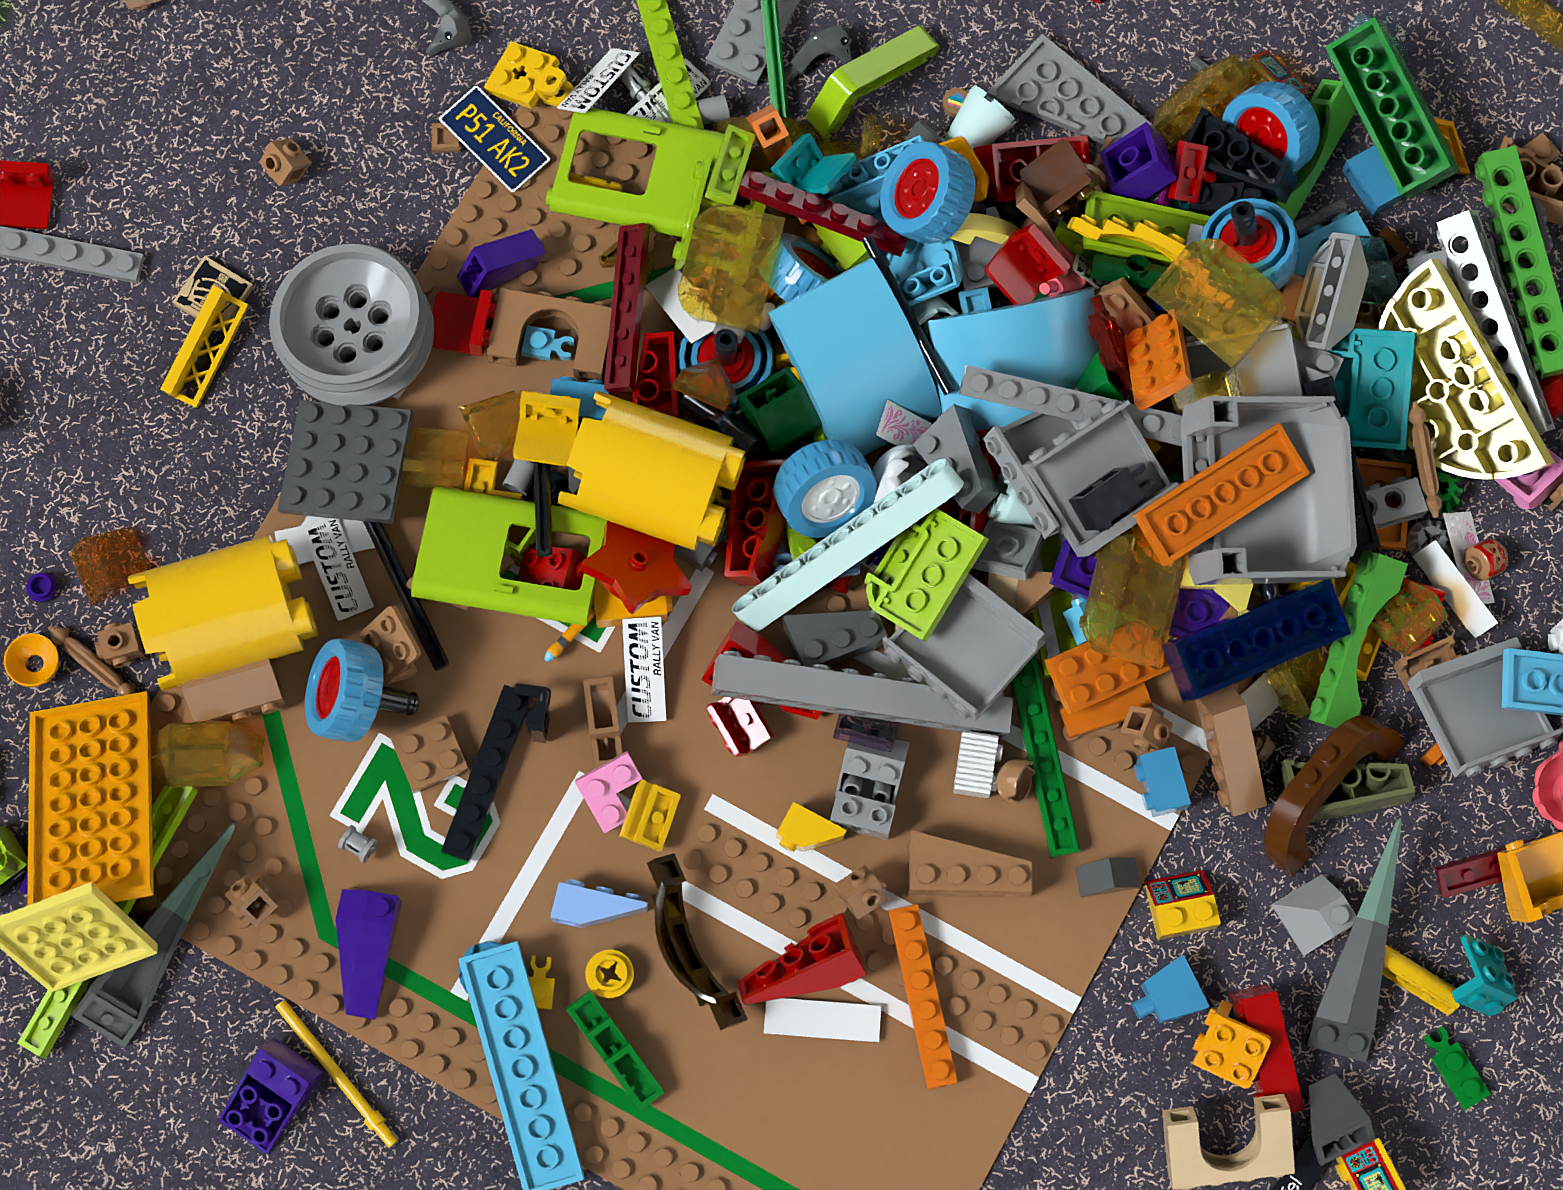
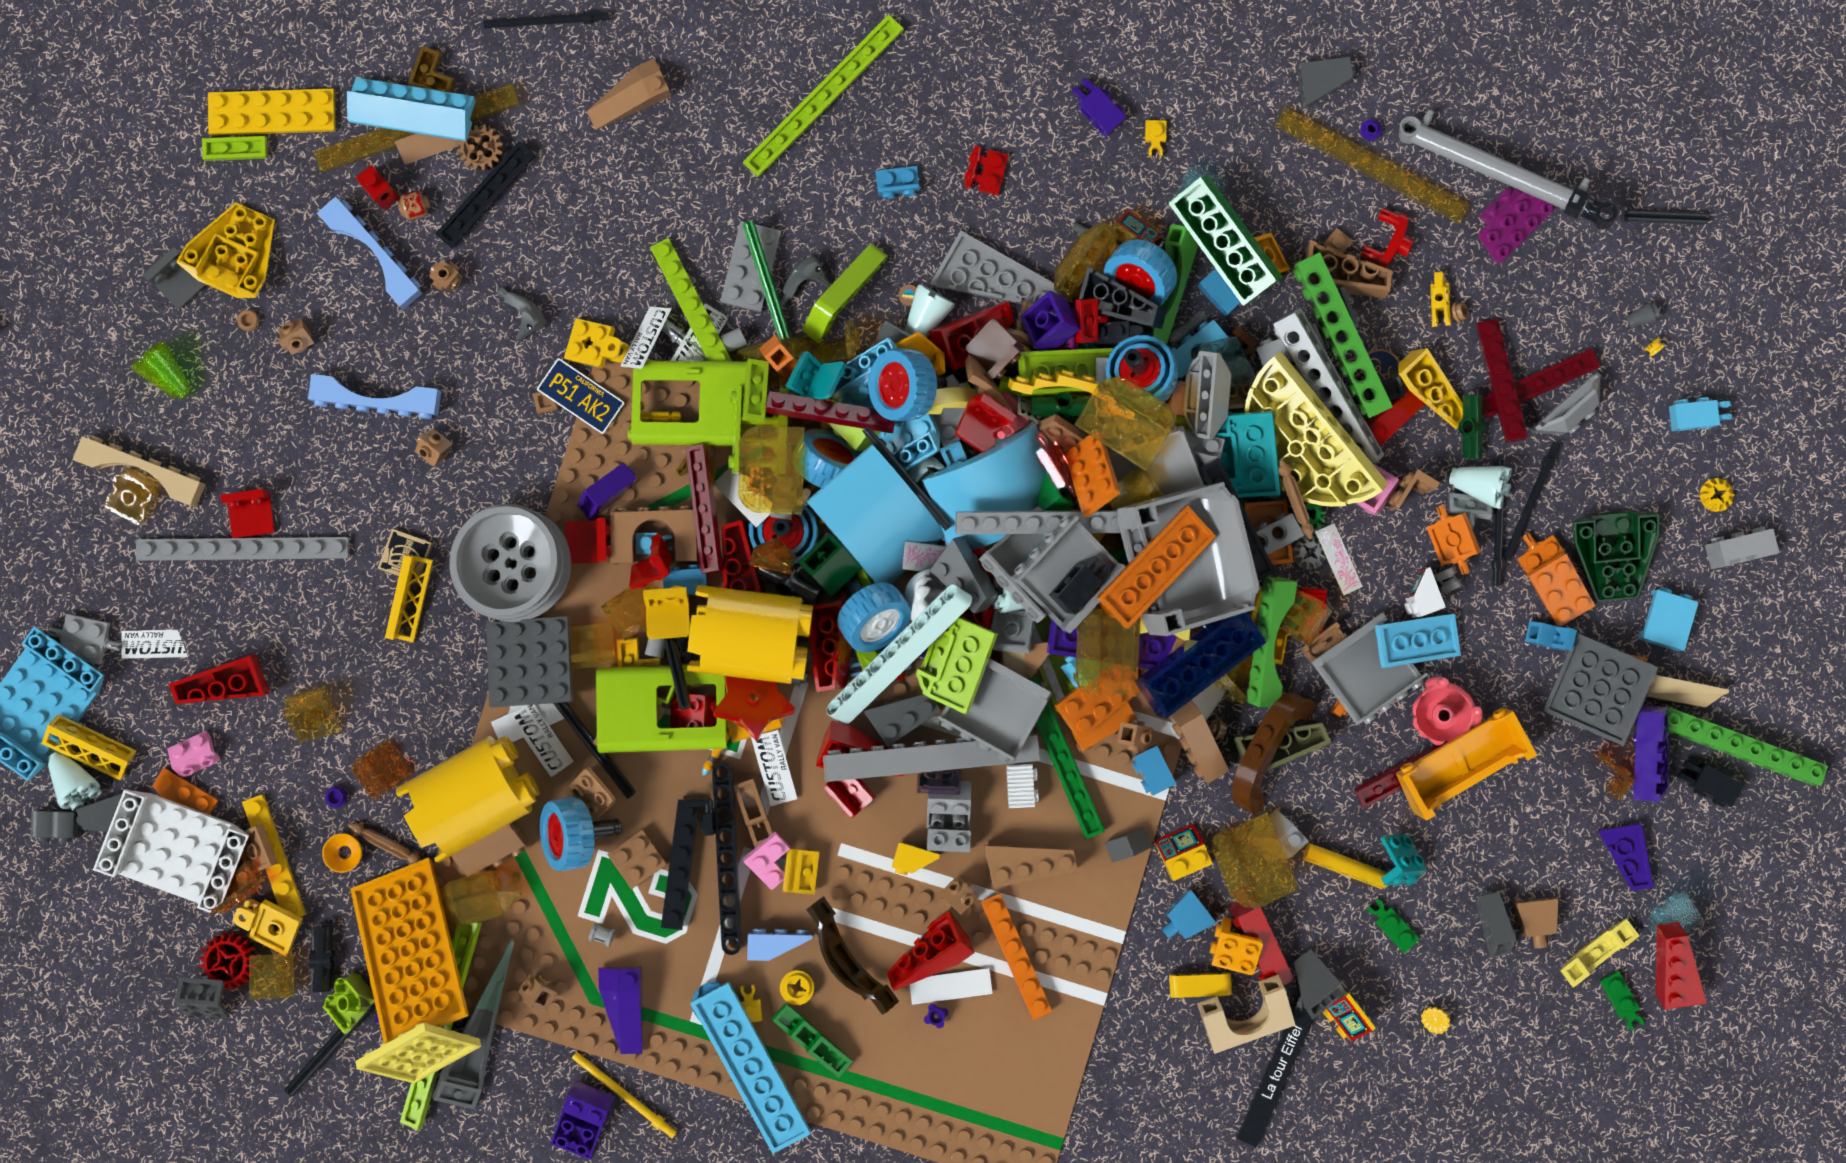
camera: 10 degrees left, 10 degrees up
(36, 471) = (311, 714): none -> clear yellow slope
(119, 644) = (392, 830): medium nougat brick -> none
(277, 101) = (418, 400): none -> light blue arch
(548, 370) = (655, 567): none -> red bracket
(552, 761) = (723, 868): none -> black beam
(802, 1051) = (942, 1013): none -> dark purple plate
(1015, 780) = (1050, 792): medium nougat hair -> none
(1171, 1090) = (1200, 985): none -> yellow beam
(1278, 934) = (1254, 863): none -> clear yellow plate
(1349, 1004) = (1311, 905): dark grey plate -> none
(1458, 591) = (1334, 586): white sticker -> none
(1487, 559) = (1351, 559): medium nougat head -> none

